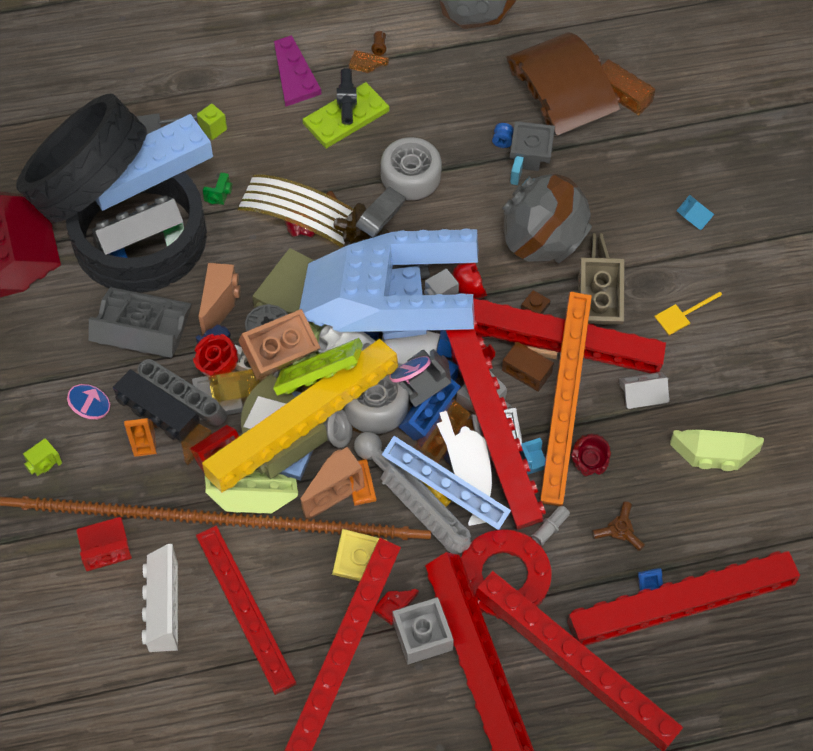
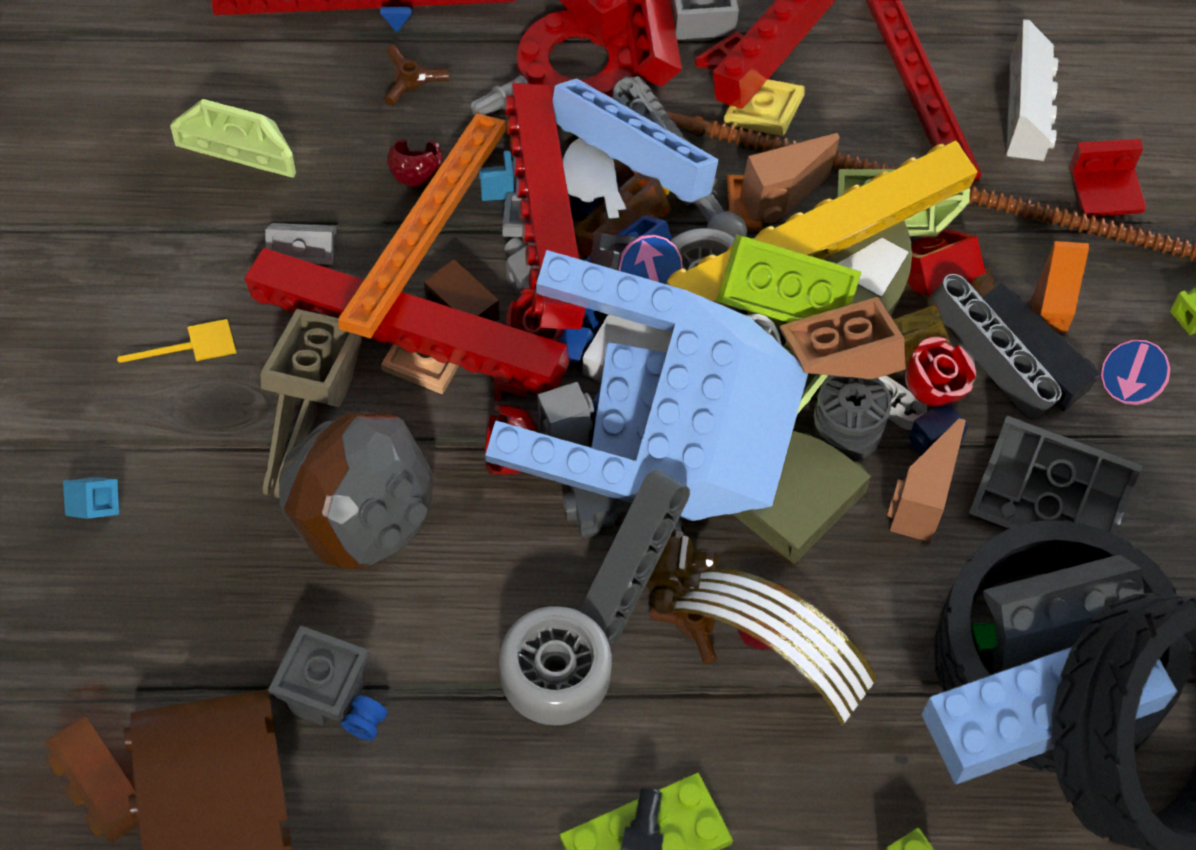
camera: 170 degrees left, 0 degrees up
(219, 193) = (897, 710): green bracket -> none
(516, 170) = (366, 632): medium azure tile -> none
(536, 302) = (414, 401): reddish brown plate -> none

